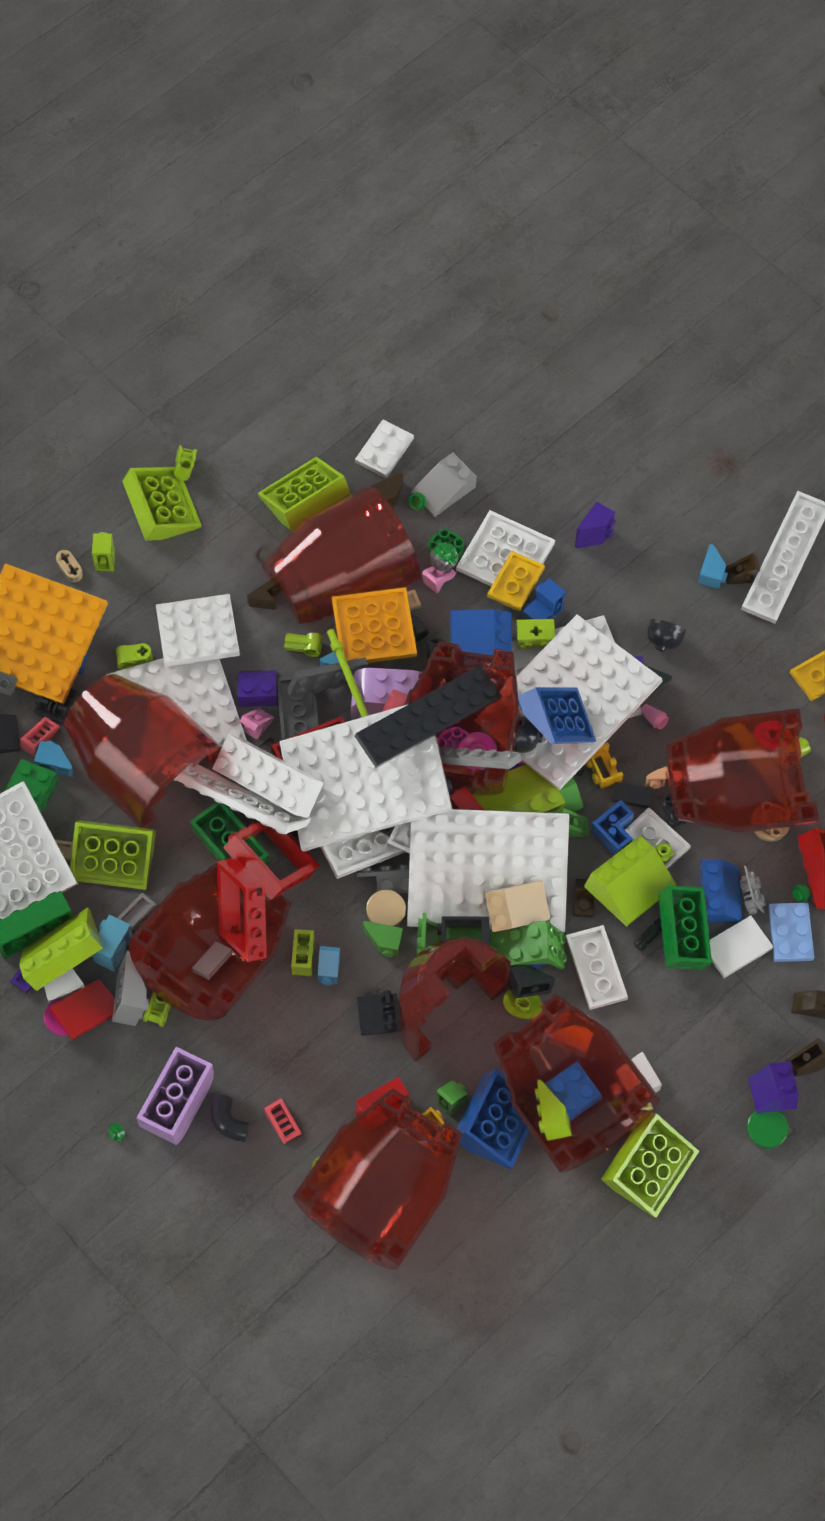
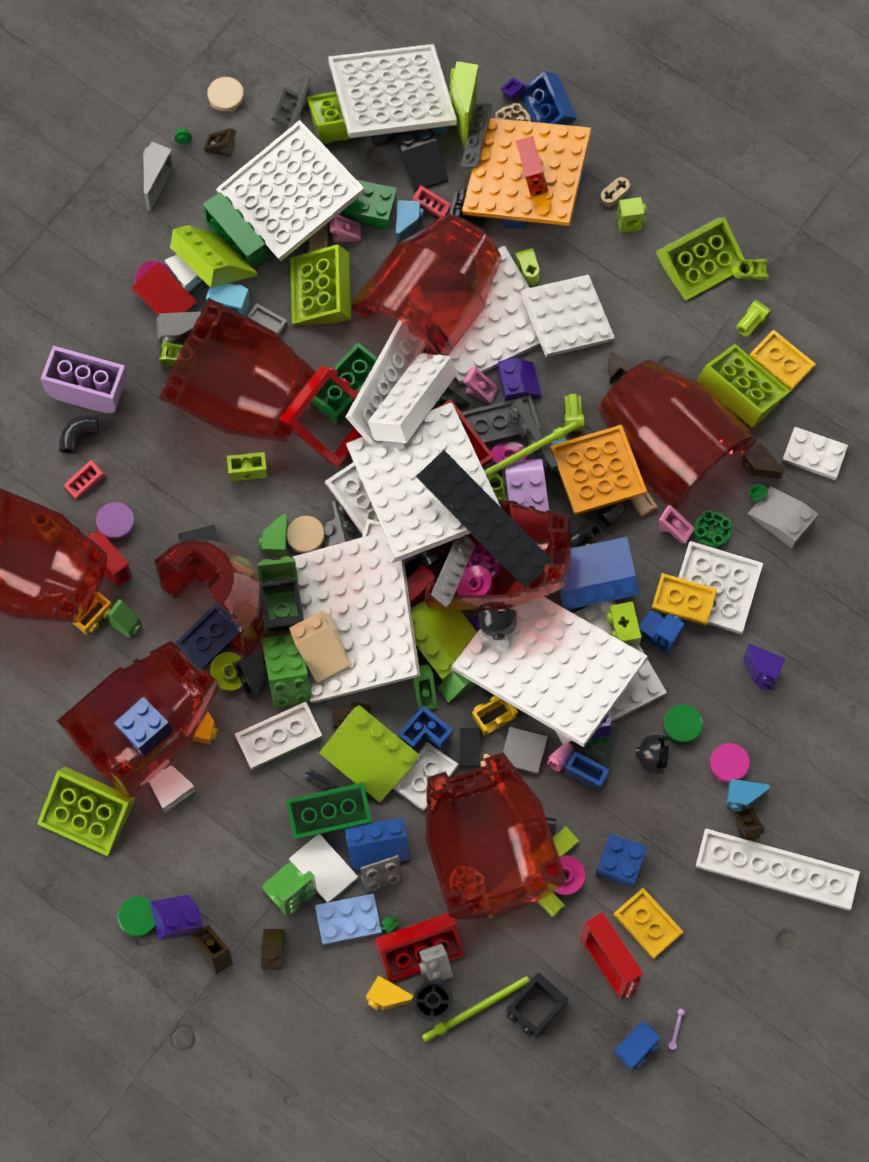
camera: 80 degrees right, 5 degrees up
(40, 618) = (531, 166): none -> window
(54, 819) = (345, 230): none -> bright pink slope
(116, 1132) = (53, 341): green plate -> none
(212, 960) = (226, 390): light grey tile -> none
(231, 876) = (262, 390): red window -> none
(232, 467) = (755, 315): none -> lime piece
(283, 456) = (782, 360): none -> yellow tile
(329, 965) = (236, 491): dark azure slope -> none
(335, 1094) = (115, 520): none -> medium lavender tile
(336, 705) = (505, 450): none -> dark pink dish
(395, 700) = (506, 493): coral slope -> none
(443, 557) = (692, 523): piece -> none
(479, 1018) = (208, 636): none -> dark blue plate
(492, 1123) = (97, 655): blue slope -> none
(554, 1116) = (111, 706): lime slope -> none
(557, 714) = (510, 643): blue slope -> none
(636, 607) = (682, 724): none -> green tile
(642, 748) = (525, 749): none -> light grey tile
(668, 851) = (409, 786): lime plate -> none
(675, 694) = (586, 771): none -> blue brick
(680, 576) = (729, 762): none -> dark pink tile
(762, 973) = (290, 888): none -> bright green bracket
(764, 681) = (621, 861): none -> blue brick

